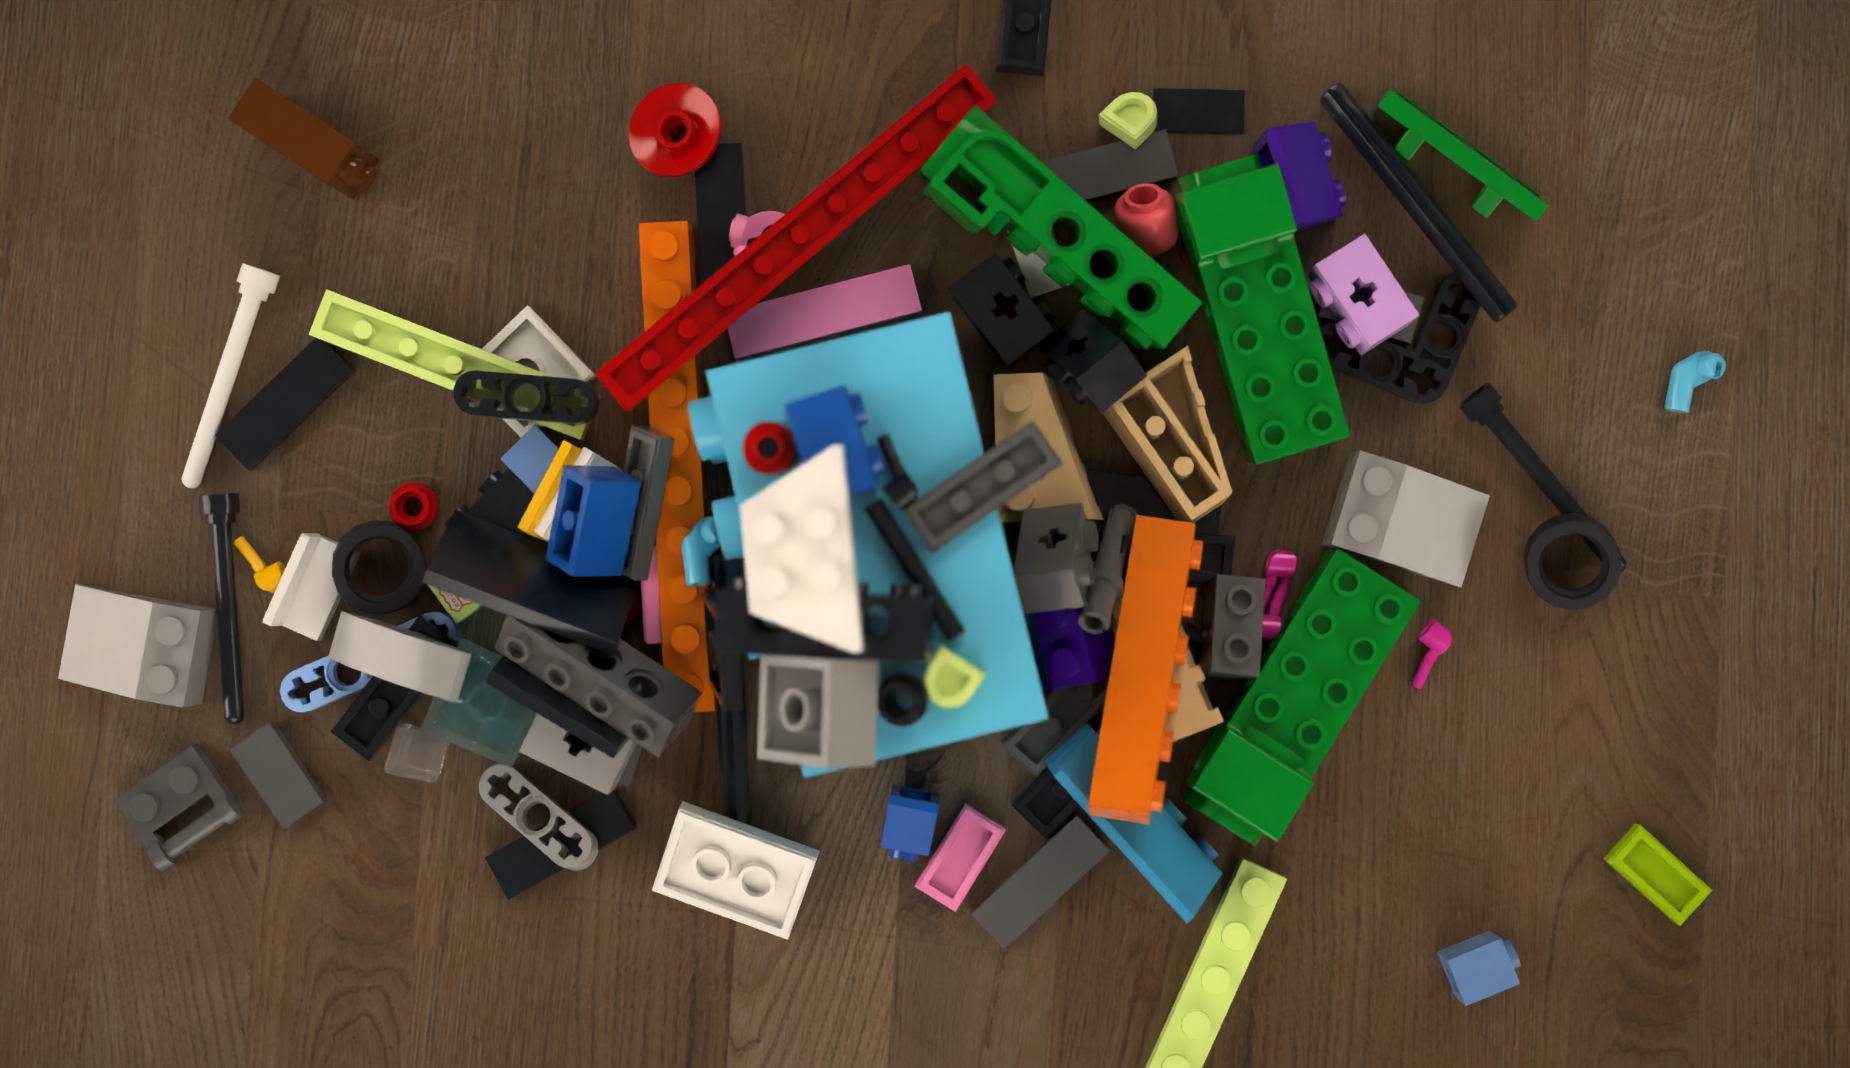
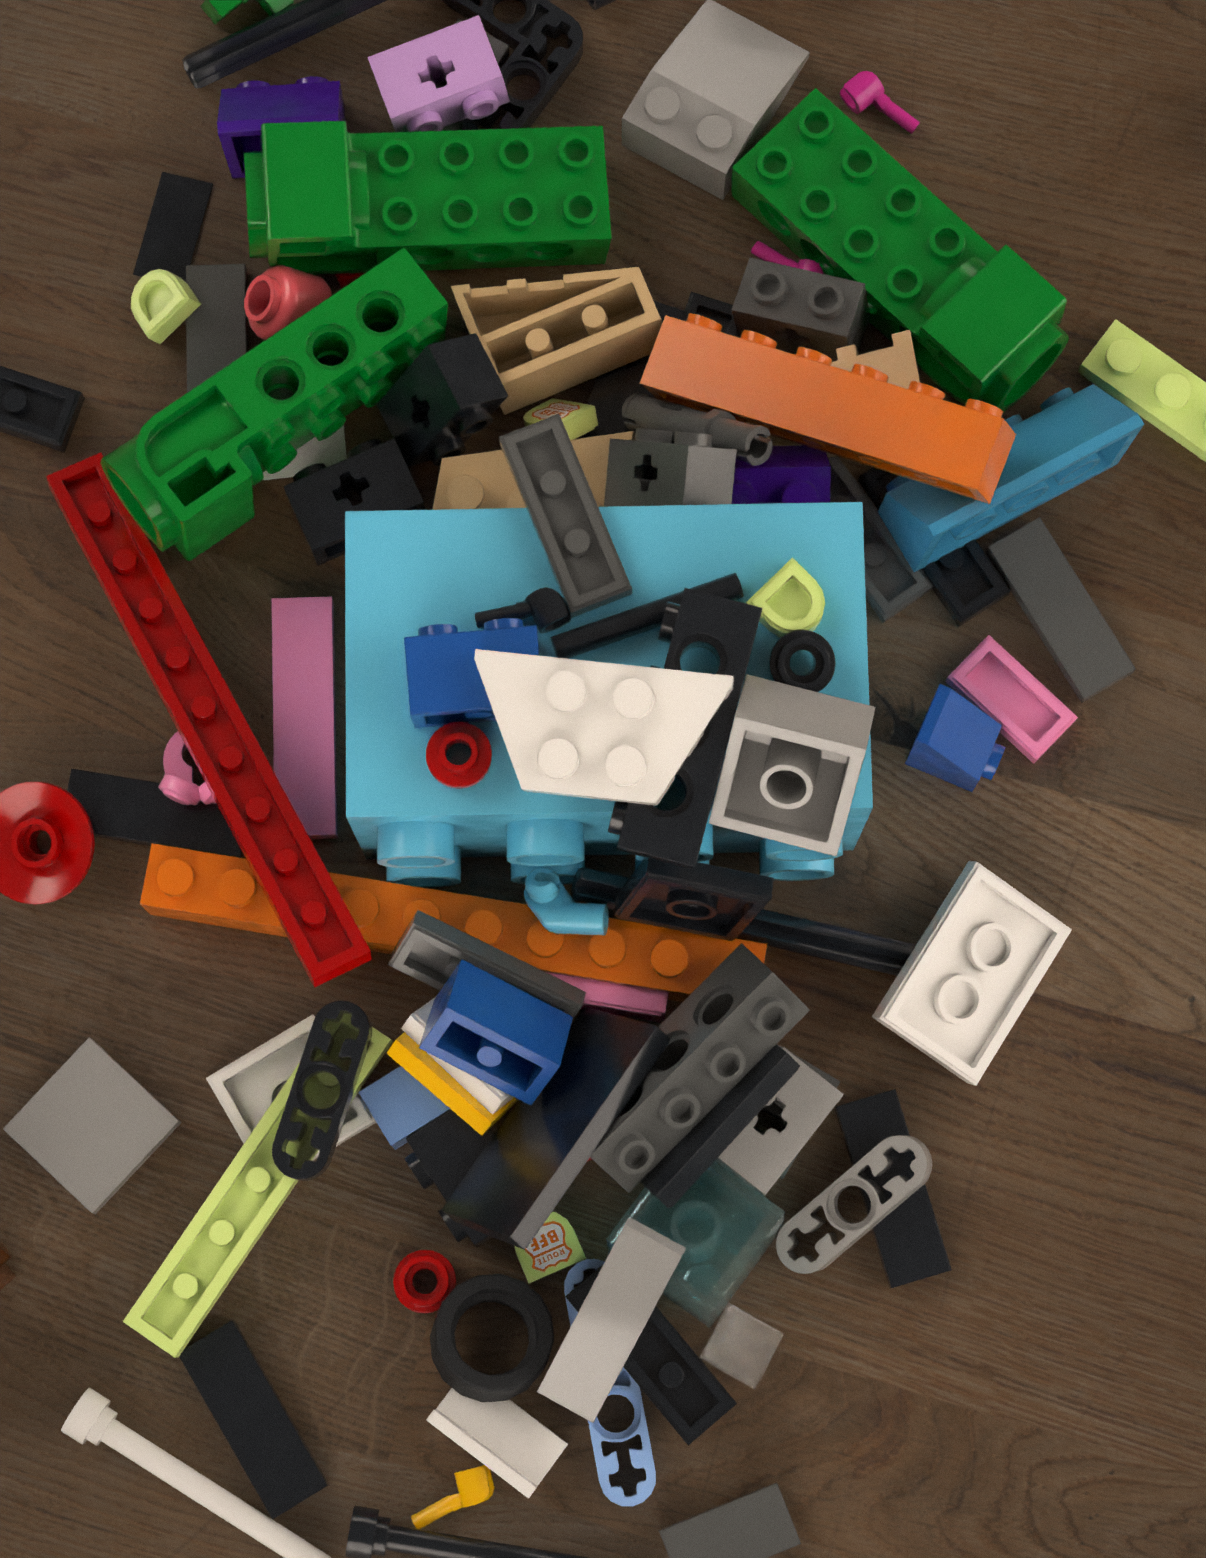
camera: 75 degrees left, 10 degrees down
(474, 228) = (92, 1126): none -> light grey tile
(1100, 455) = (576, 417): none -> yellowish green tile
(1278, 564) = (736, 247): dark pink hand -> none

